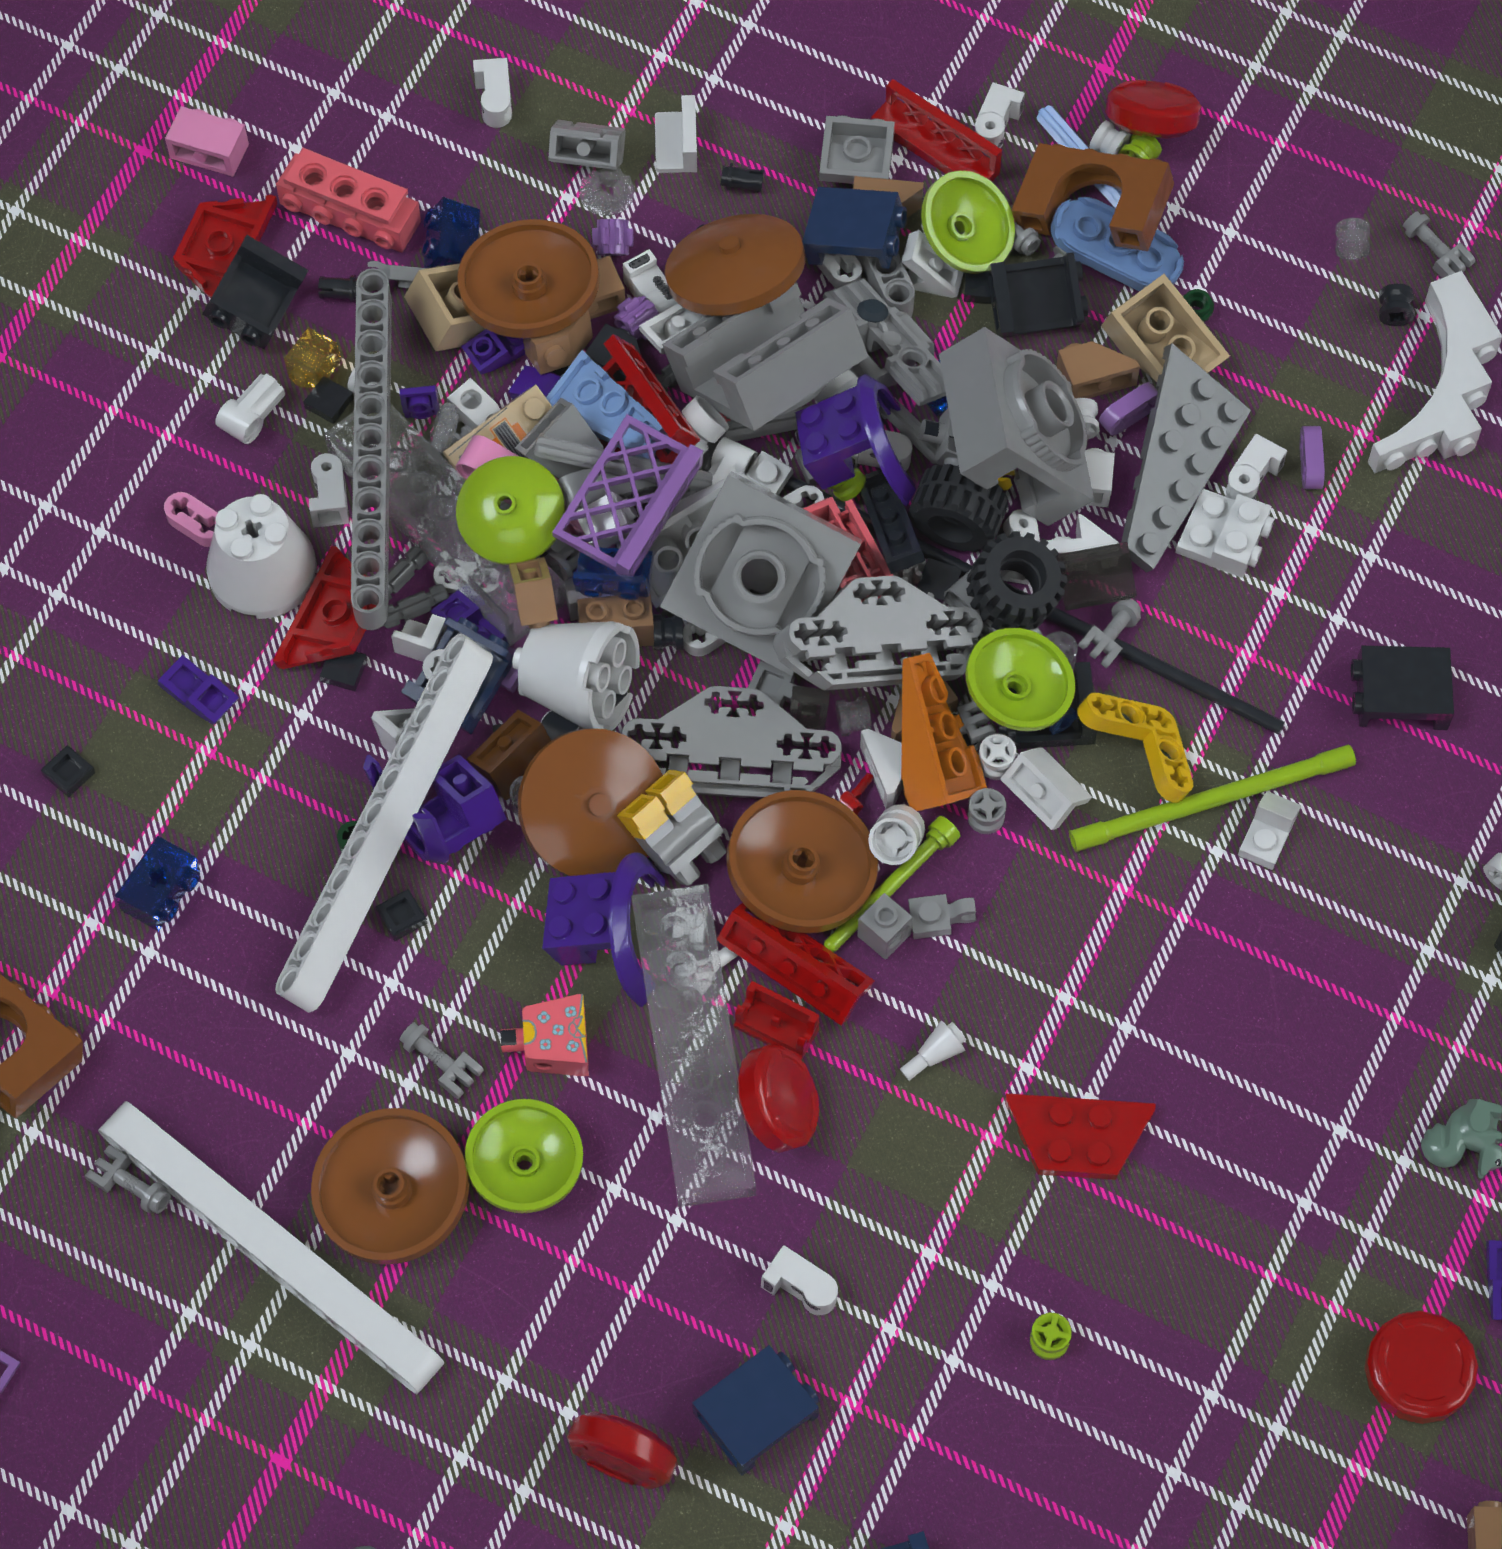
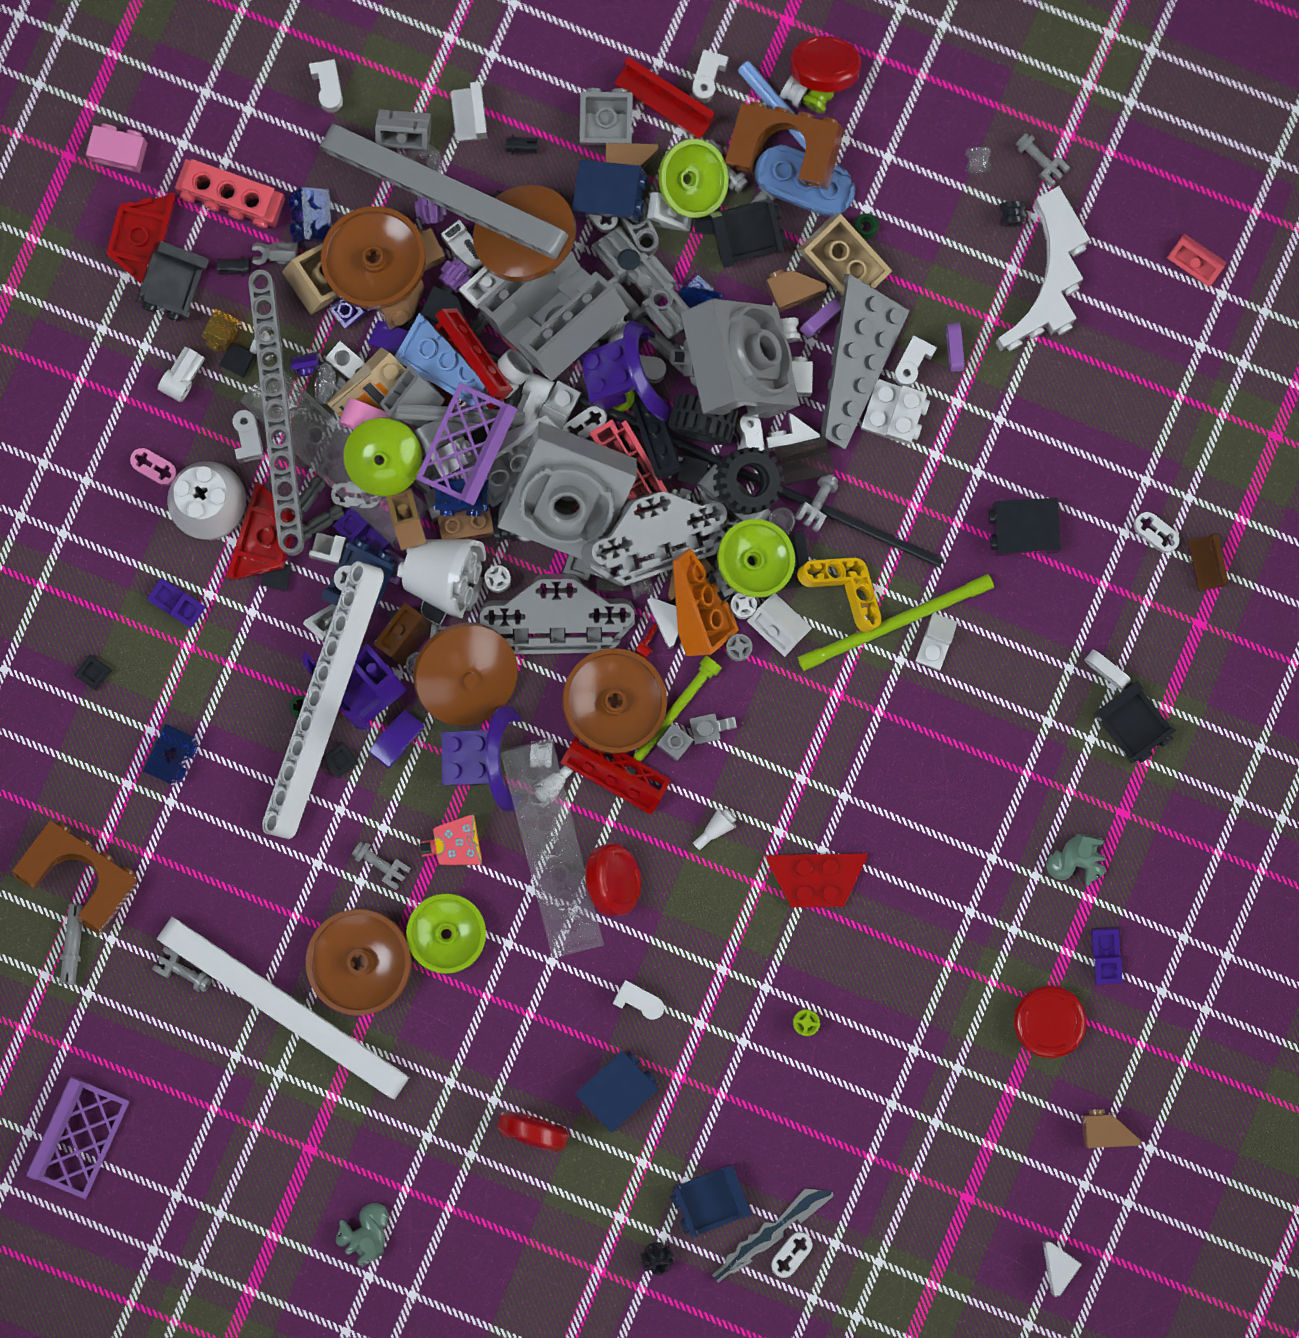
camera: 10 degrees left, 20 degrees up
(479, 892) = (396, 738): none -> dark purple slope
(635, 204) = (444, 191): none -> light grey beam
(648, 687) = (495, 573): none -> white wheel
(674, 827) = (530, 692): light grey hips -> none
(776, 1020) = (606, 818): red hinge -> none
(896, 834) = (678, 676): white wheel -> none

